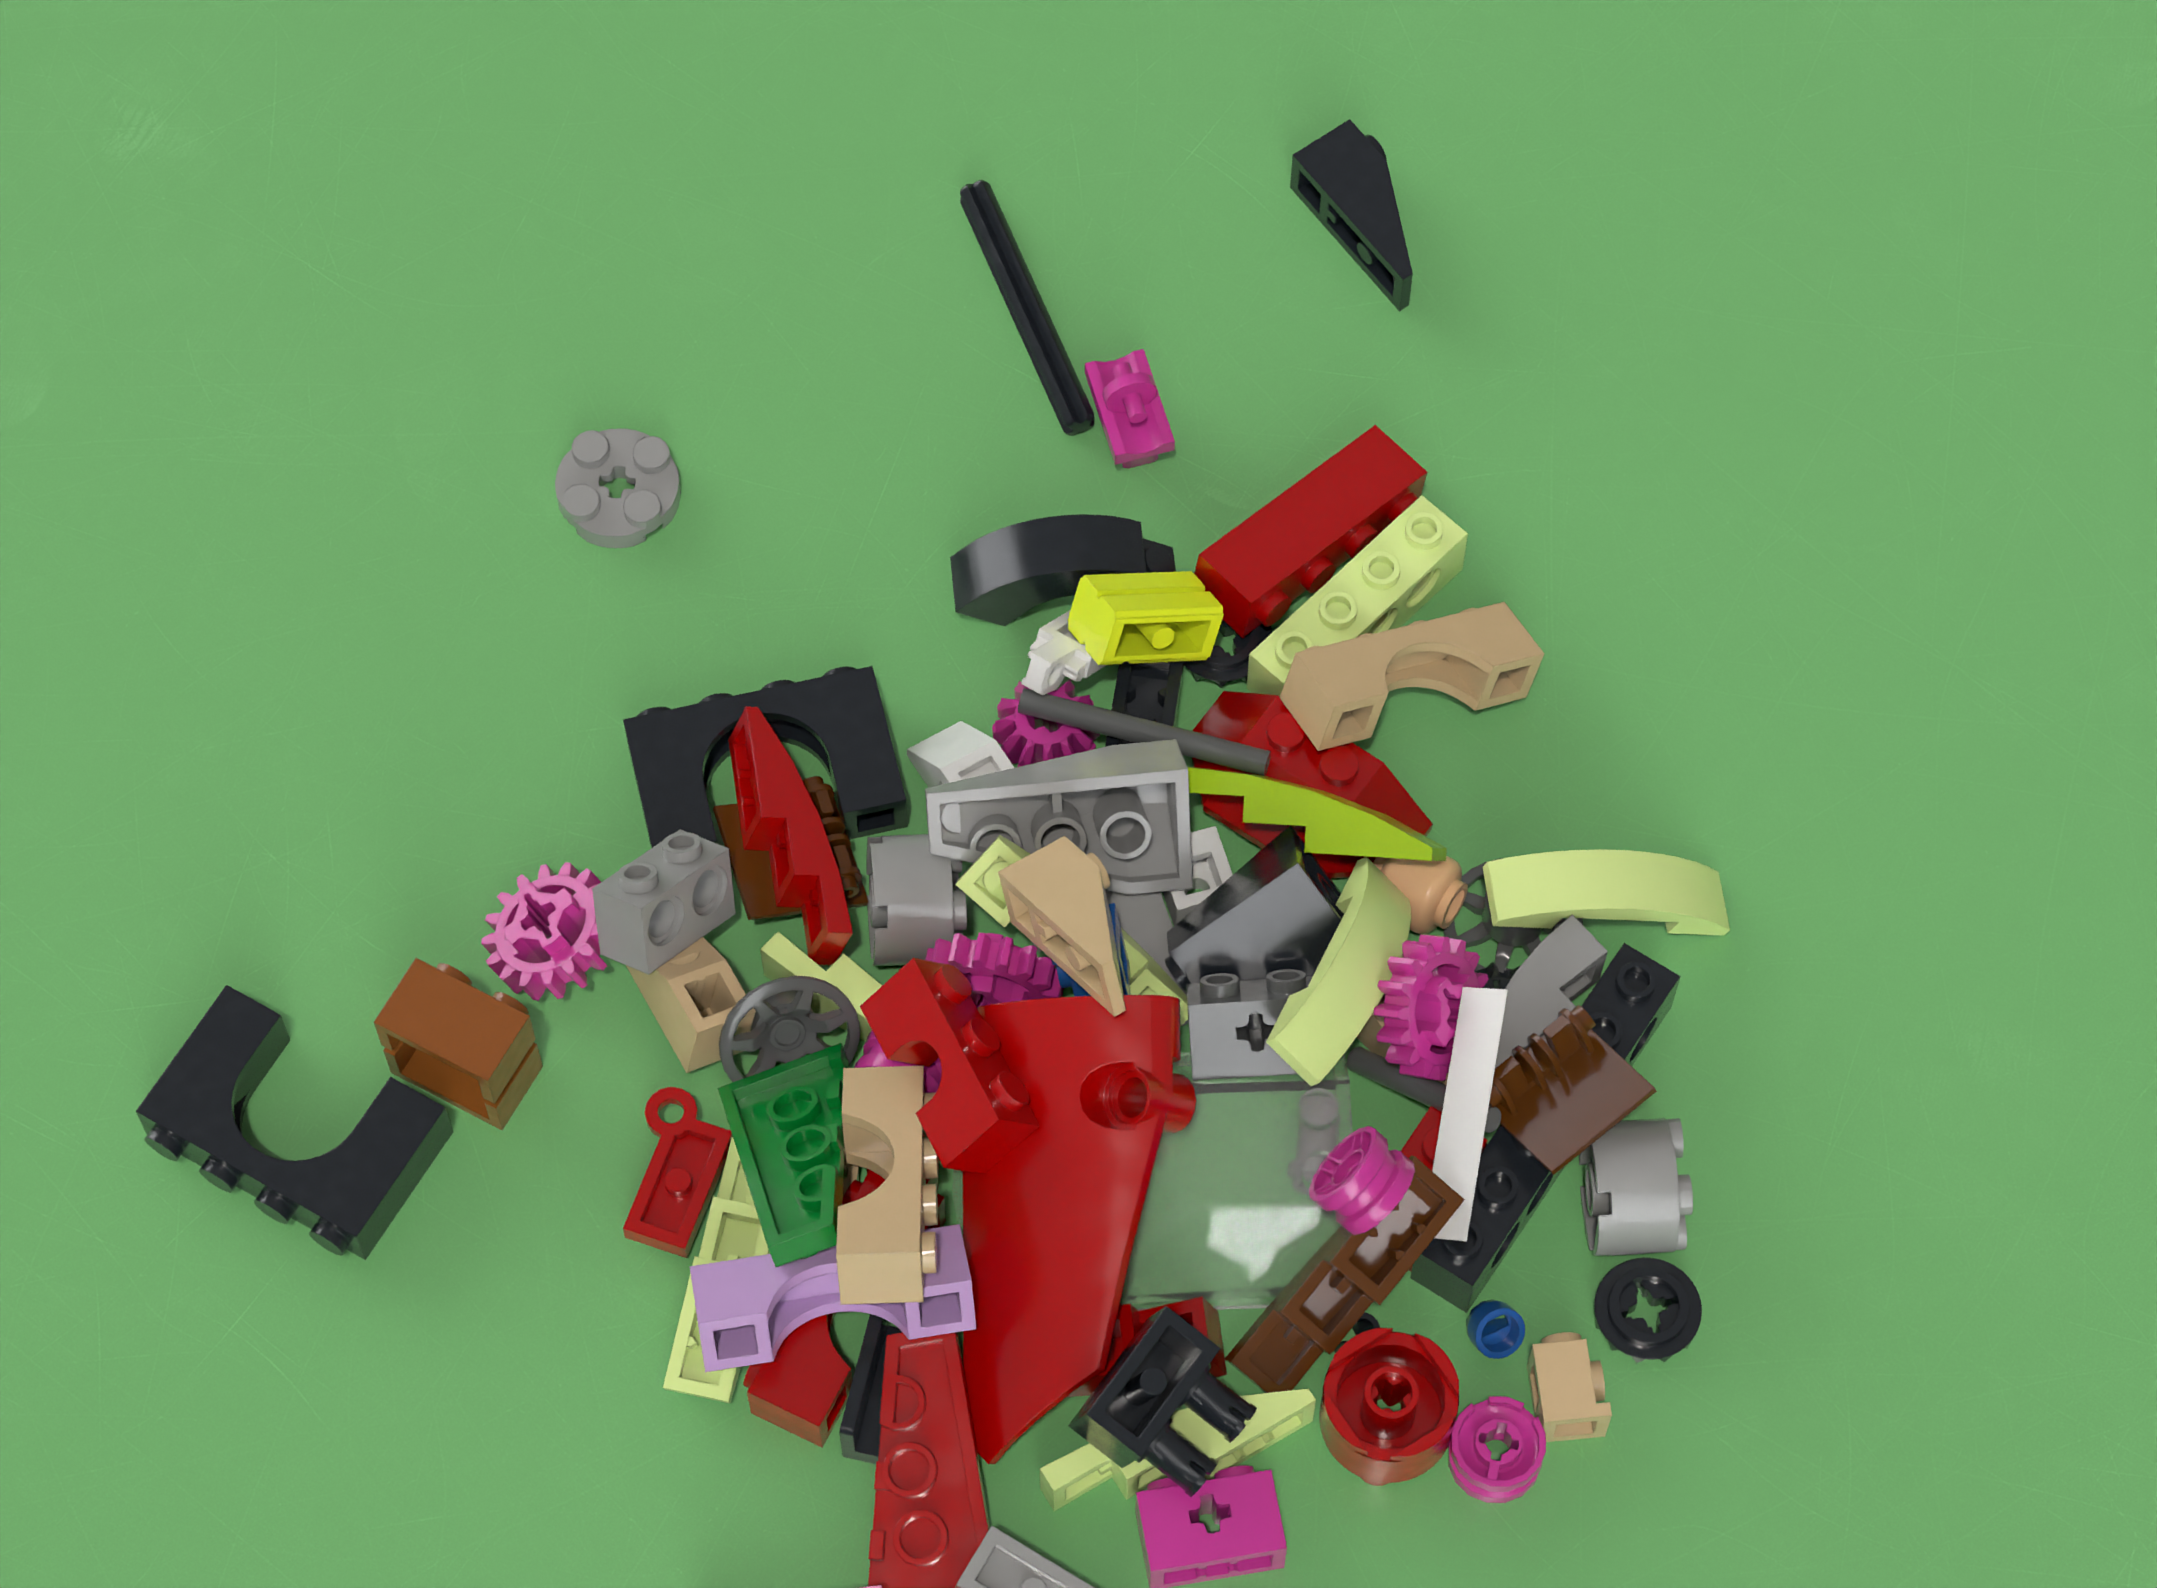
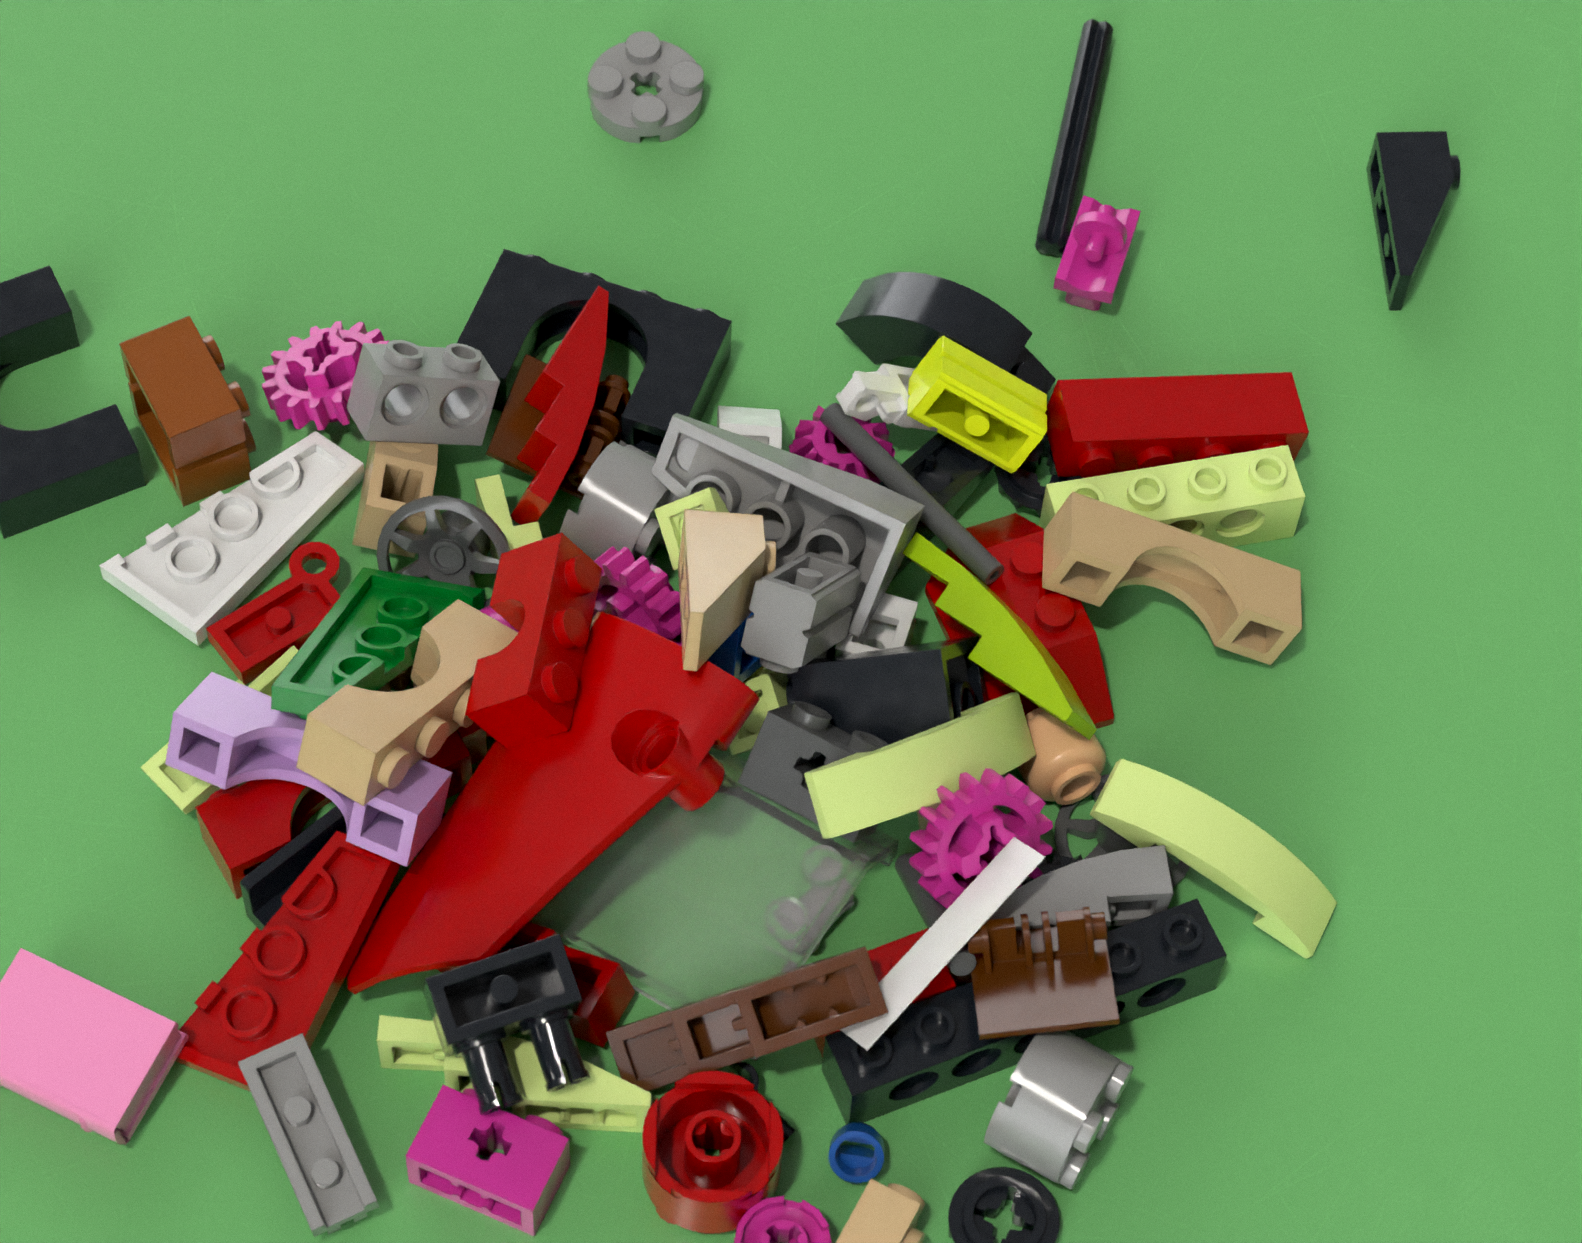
camera: 30 degrees right, 5 degrees down
(576, 1151) = (236, 539): none -> white wing
(1148, 899) = (800, 611): none -> light grey brick
(1361, 1180) = (804, 937): dark pink wheel -> none

